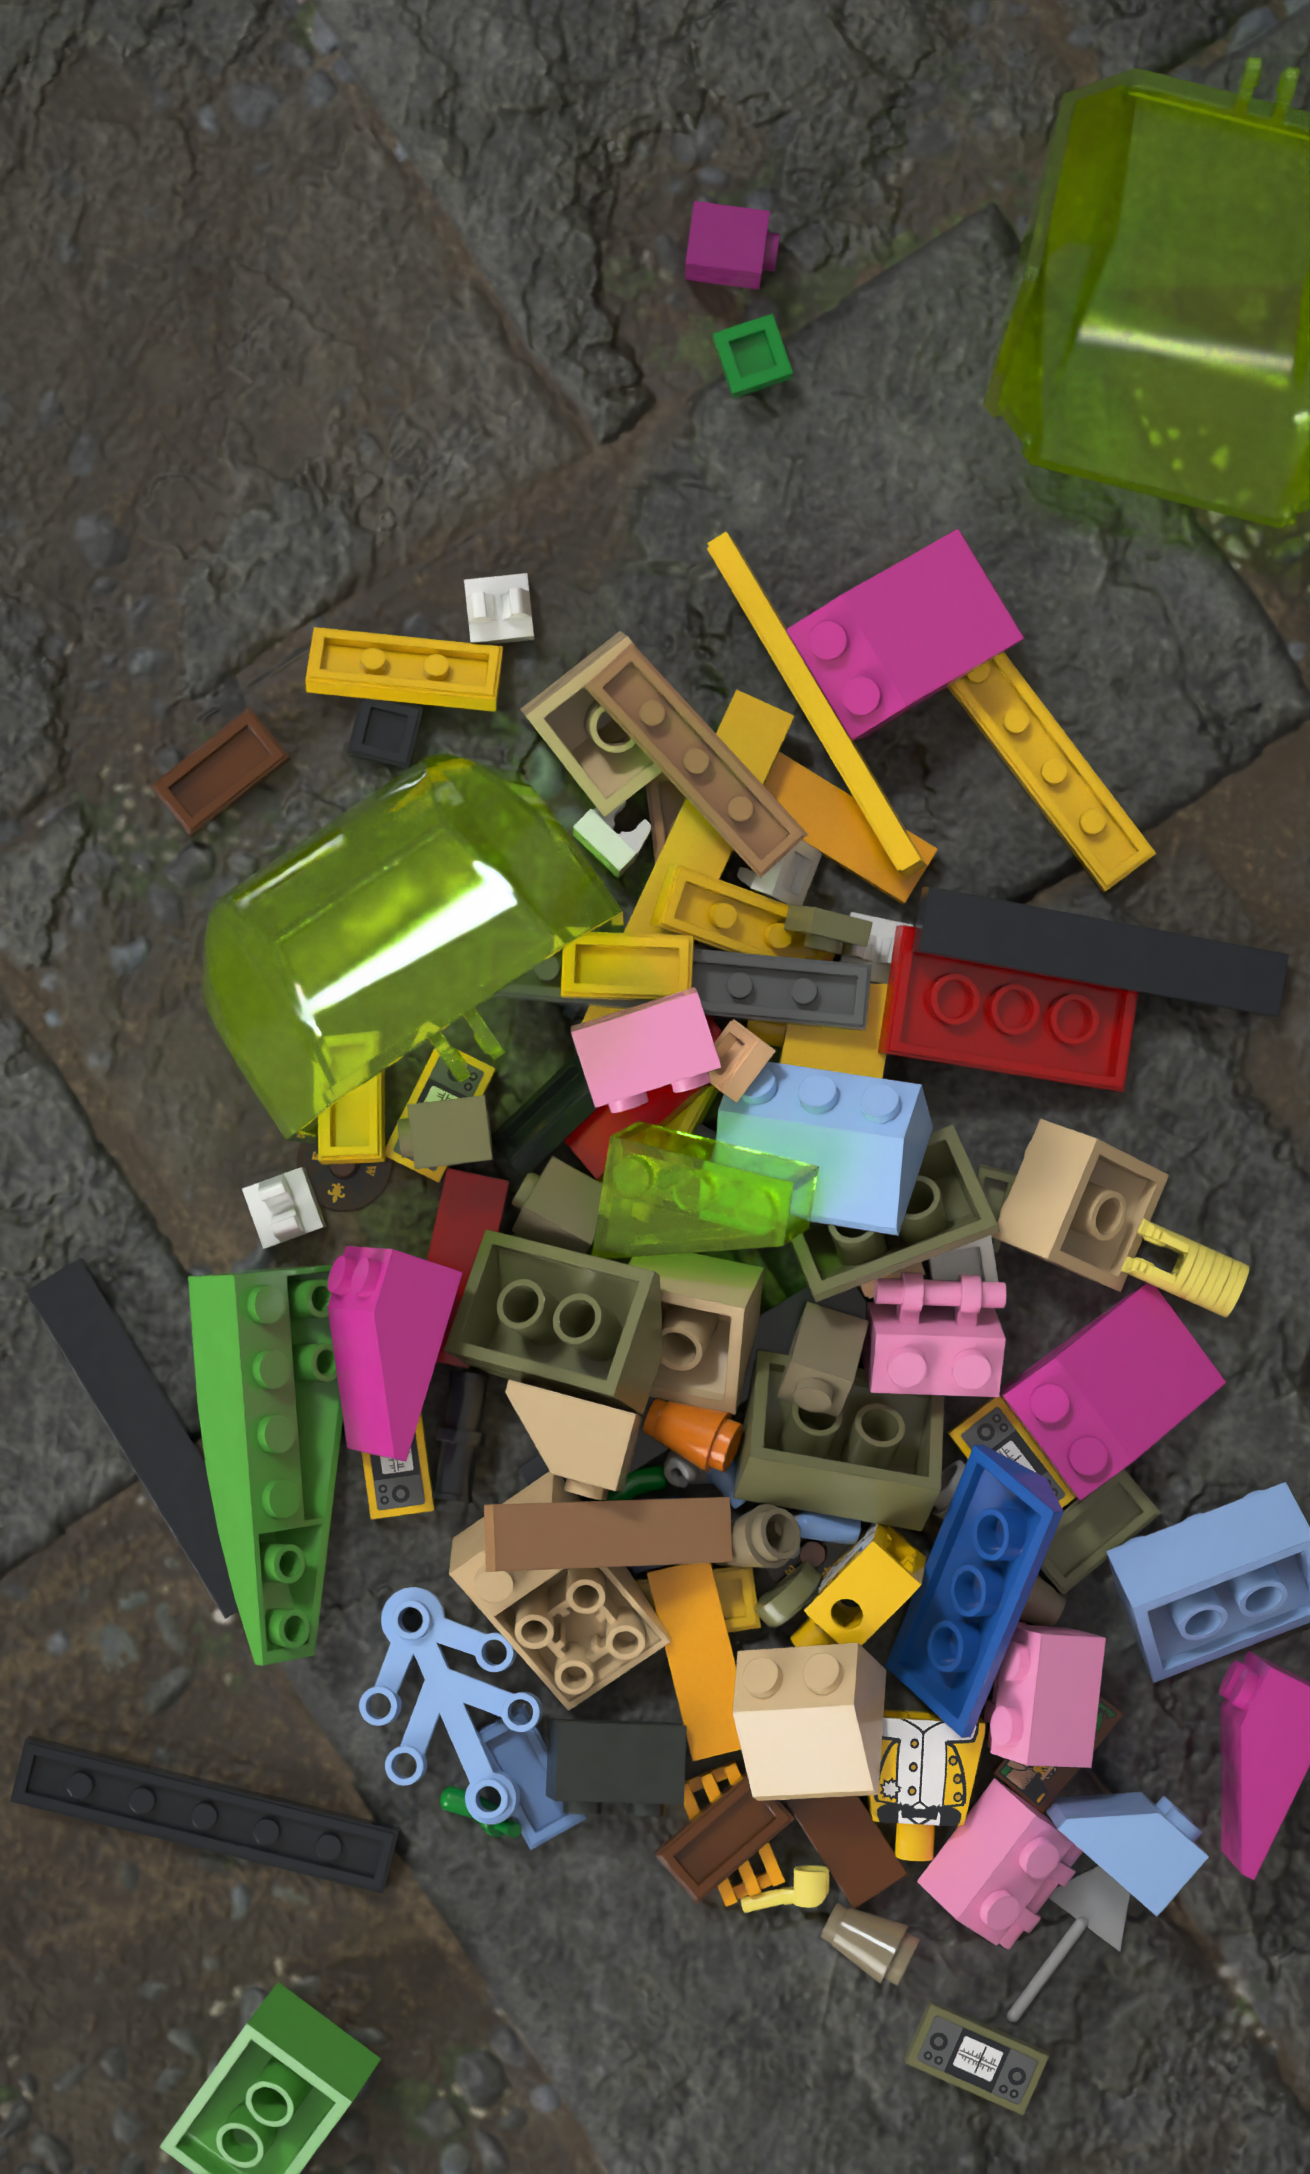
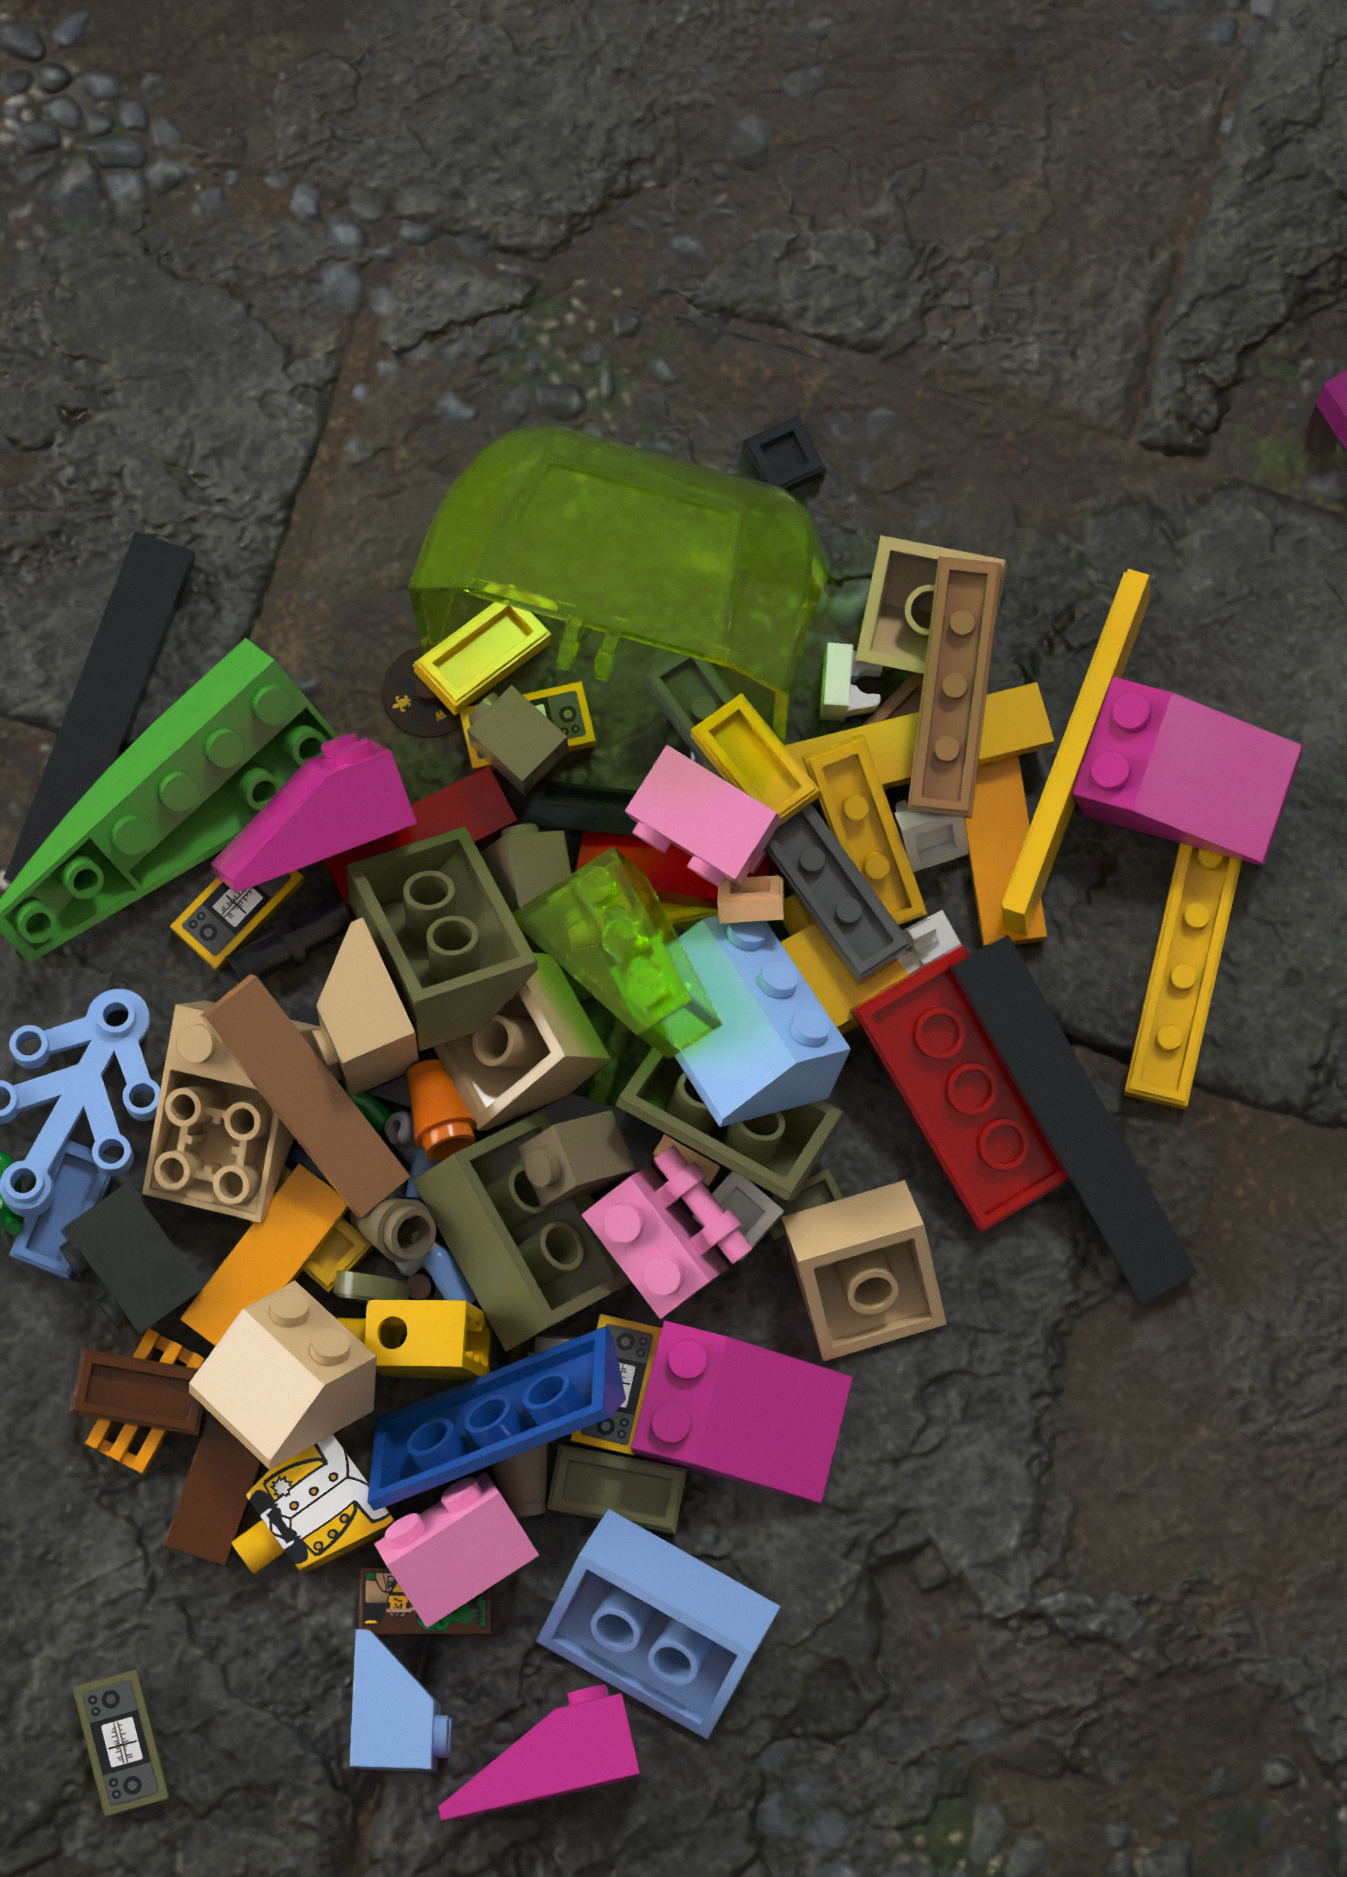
camera: 55 degrees right, 10 degrees down
(220, 772) = (649, 363): reddish brown tile -> none
(284, 1207) = (357, 671): white tile -> none
(404, 669) = (842, 432): yellow tile -> none
(499, 609) = (947, 466): white tile -> none
(752, 356) = (1300, 495): green plate -> none
(809, 1890) = (152, 1498): light yellow hand -> none
(827, 929) = (912, 894): olive plate -> none
(871, 1942) = (147, 1582): dark tan cone -> none
(1000, 1866) = (289, 1633): bright pink brick -> none
(1096, 1903) = (321, 1742): light grey piece -> none
(1198, 1274) = (886, 1408): light yellow hinge -> none

